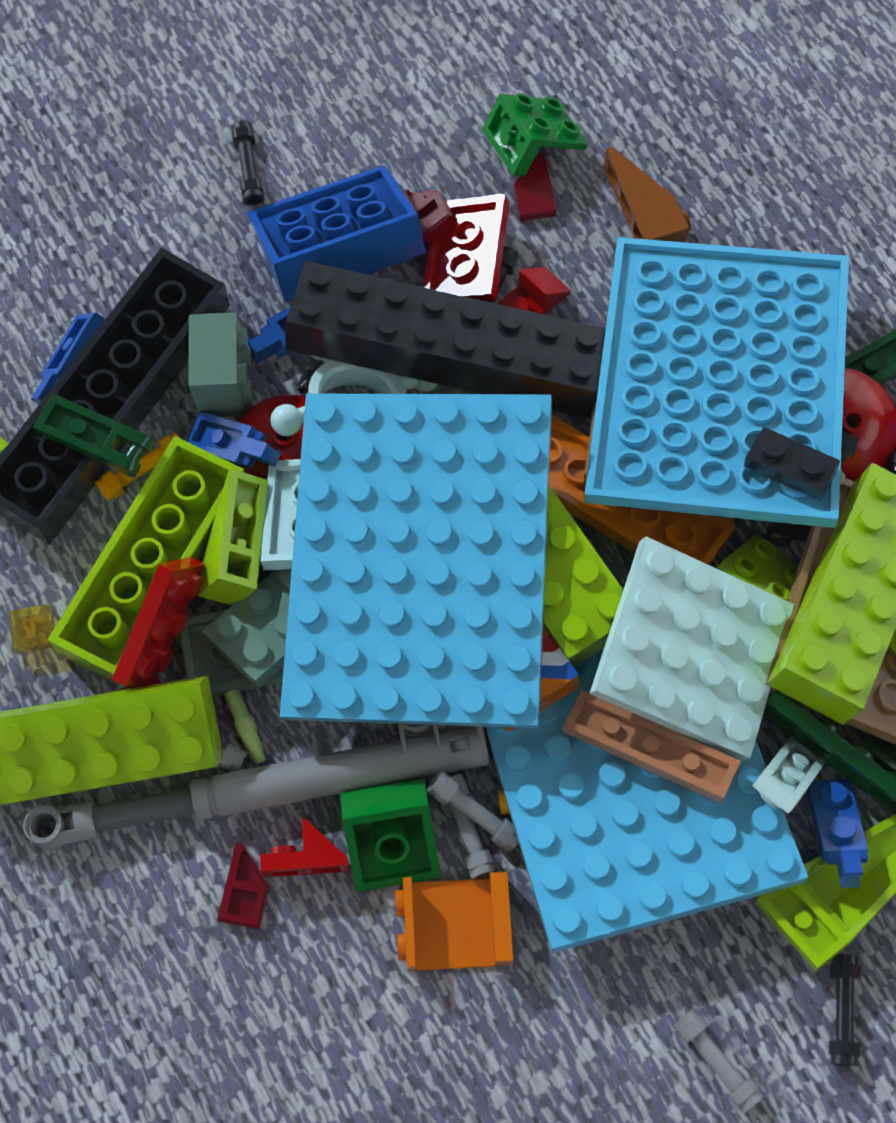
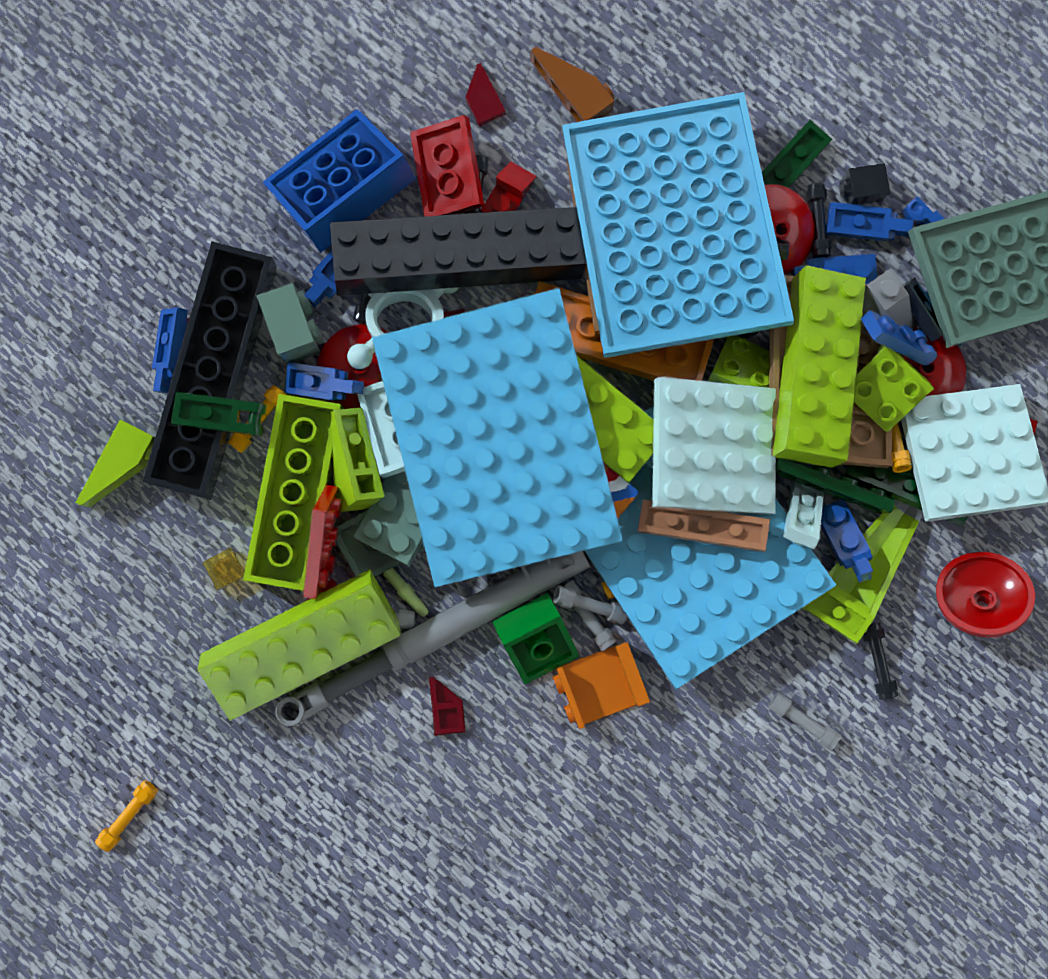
camera: 25 degrees left, 15 degrees up
(251, 186) = (237, 119): black bar -> none
(317, 857) = (490, 668): red slope -> none
(433, 212) = (409, 142): tile -> none
(525, 123) = (464, 44): green bracket -> none
(791, 463) = (749, 285): black plate -> none

